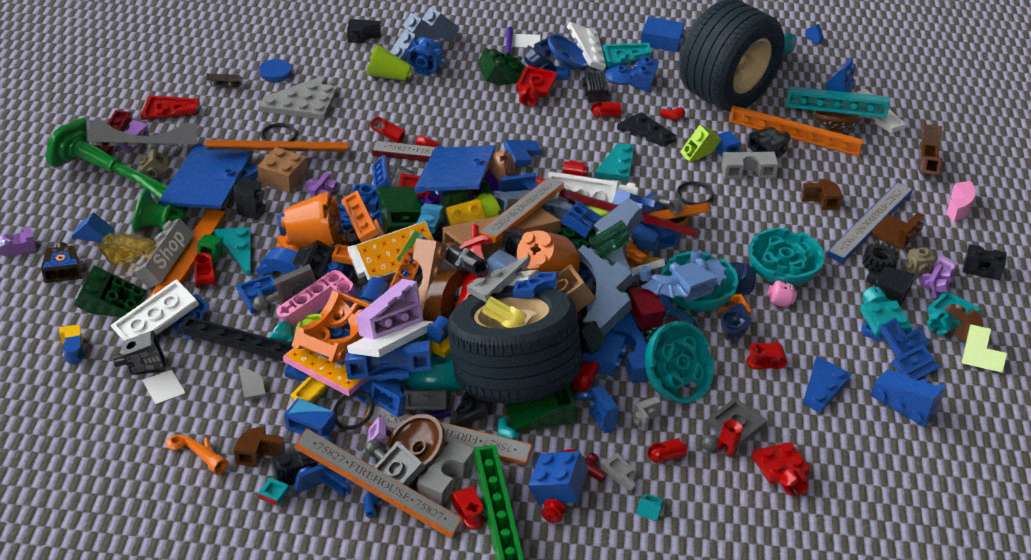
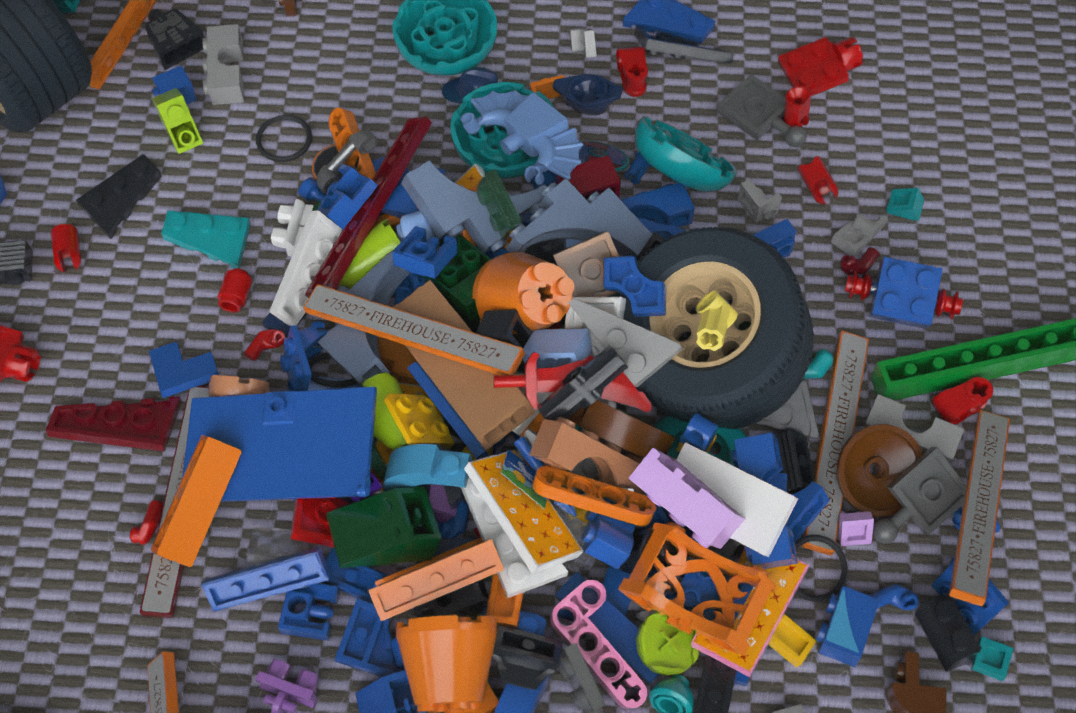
camera: 90 degrees left, 20 degrees up
(388, 130) = (113, 589): red piece -> none
(430, 145) = (196, 501): none -> orange panel
(490, 128) = (119, 424): none -> dark red wing
(674, 114) = (84, 158): red arm -> none
(782, 294) = (512, 42): bright pink head -> none
(788, 330) = (583, 41): none -> light grey slope
(792, 378) = (679, 47): none -> black wing

